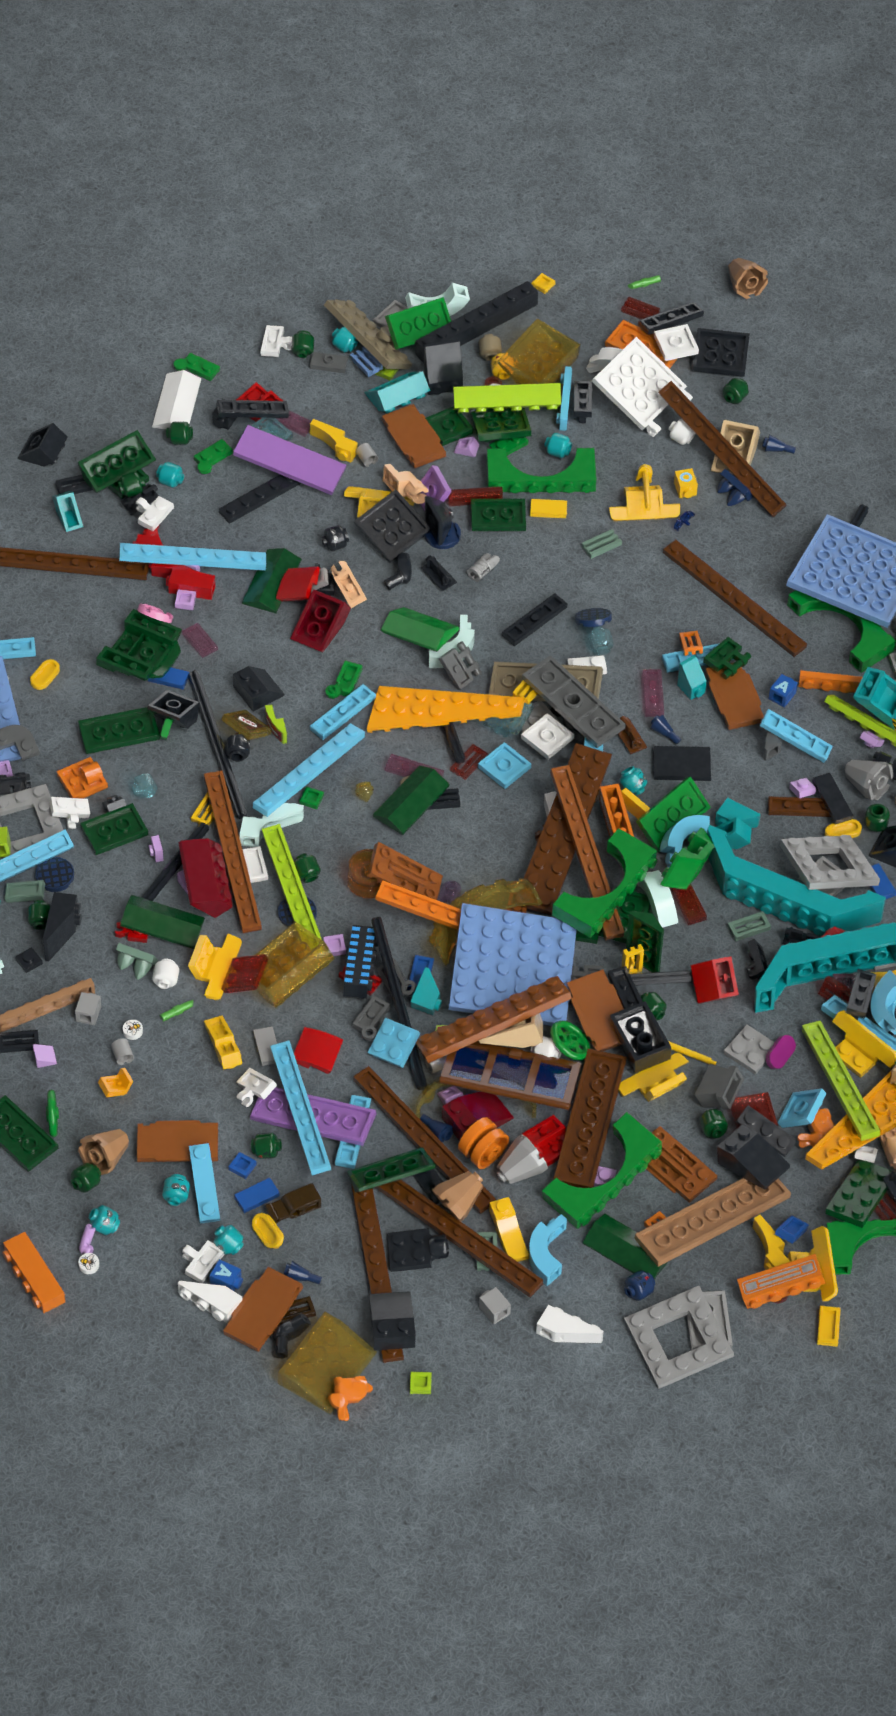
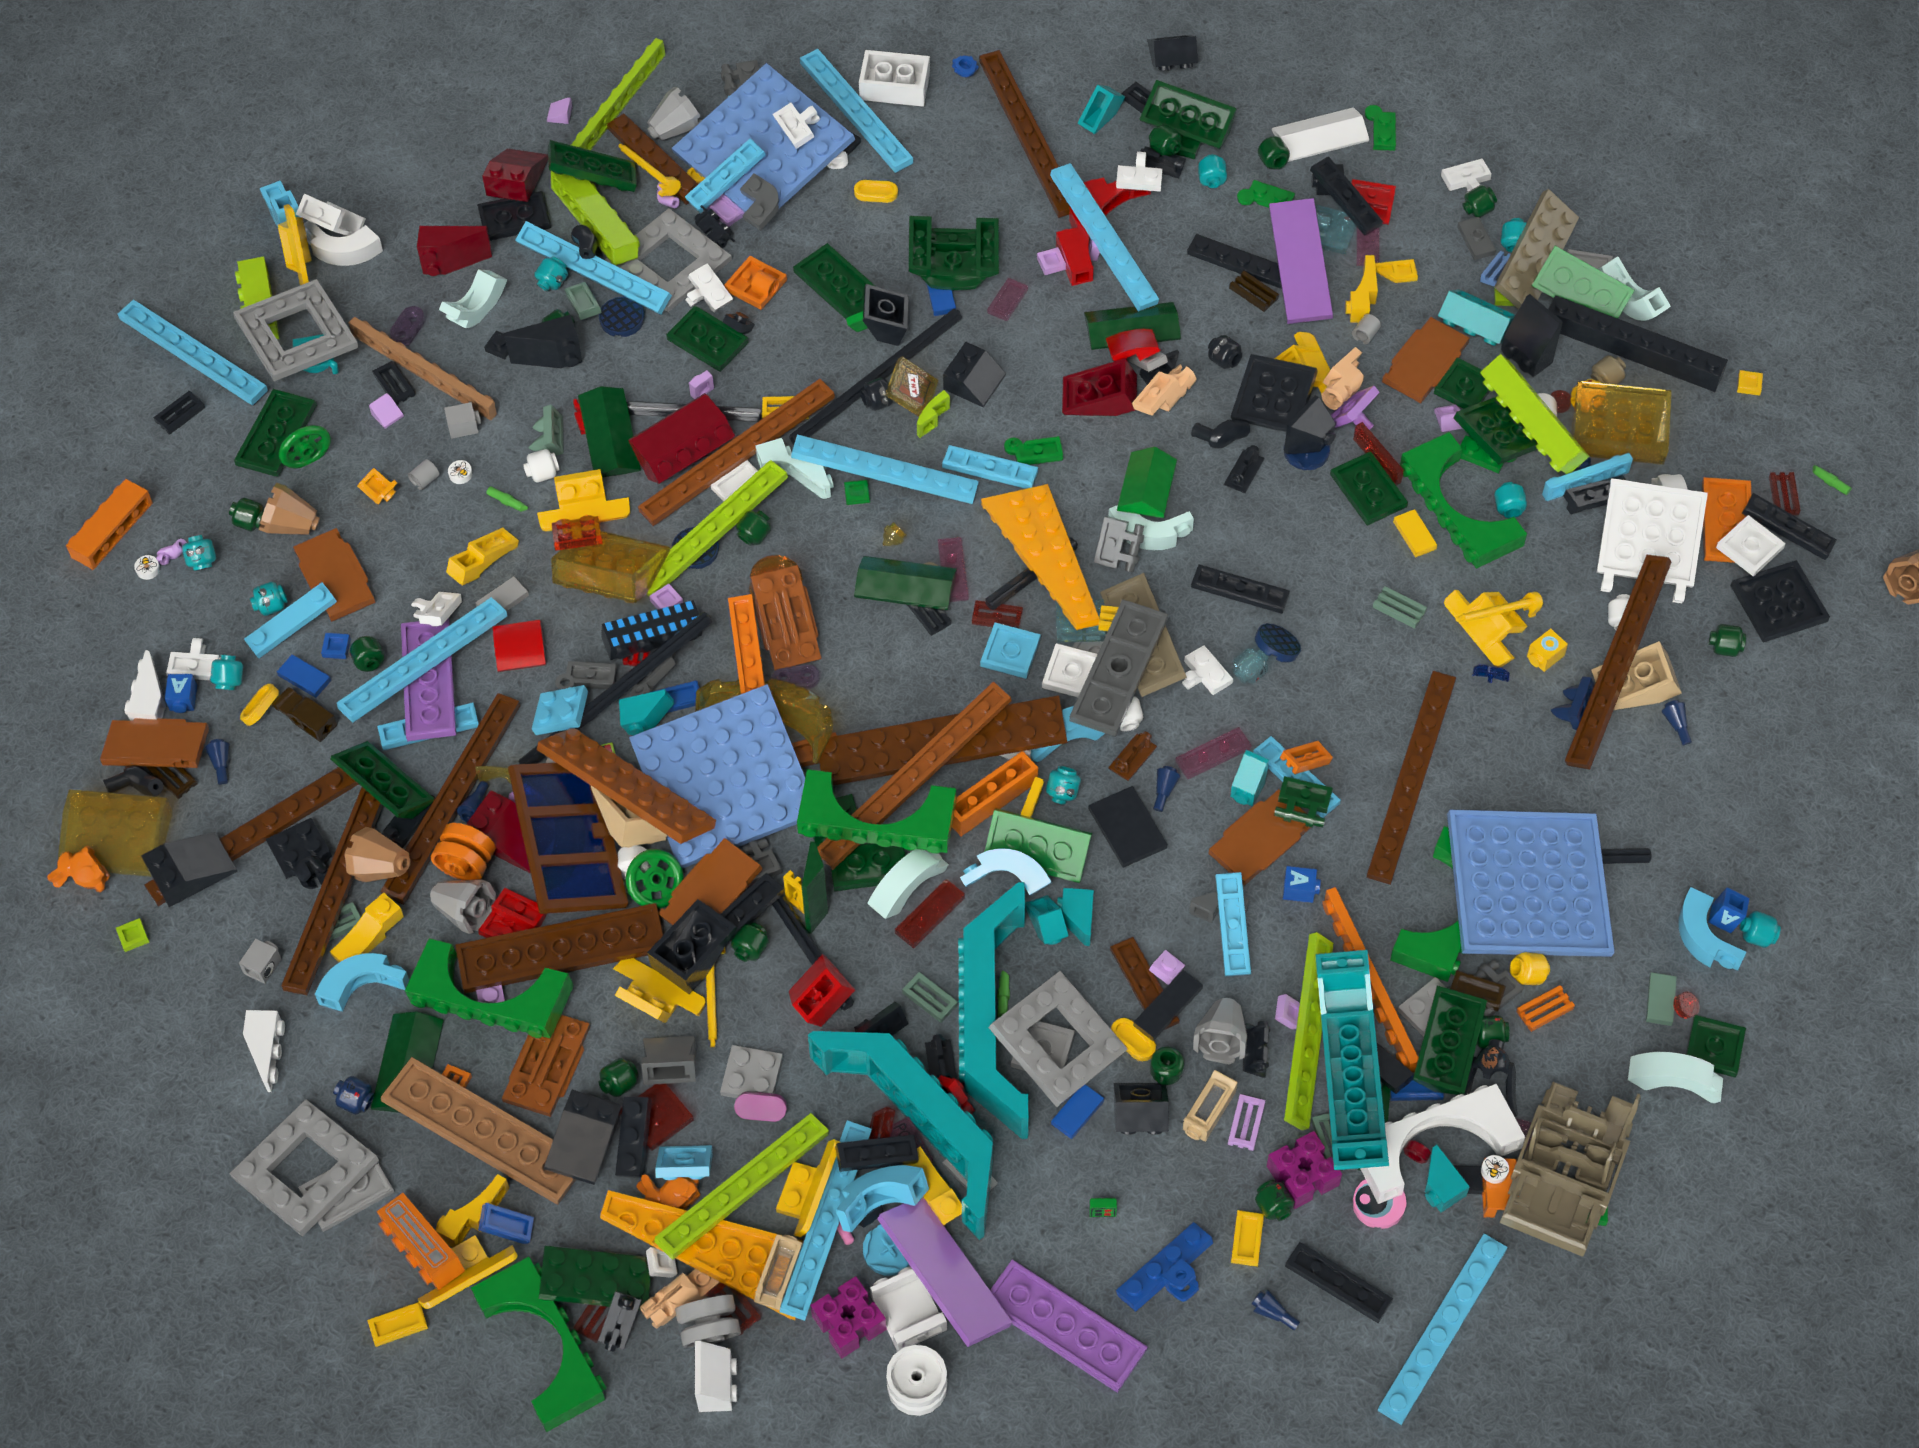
camera: 65 degrees right, 5 degrees up
(144, 786) = (777, 337): clear light blue plate -> none
(155, 613) = (1008, 241): bright pink tile -> none
(288, 499) = (1256, 288): none -> dark brown tile
(328, 414) = (1398, 271): none -> yellow tile
(482, 567) = (1283, 506): light grey hinge -> none
(688, 862) = (936, 884): green slope -> none

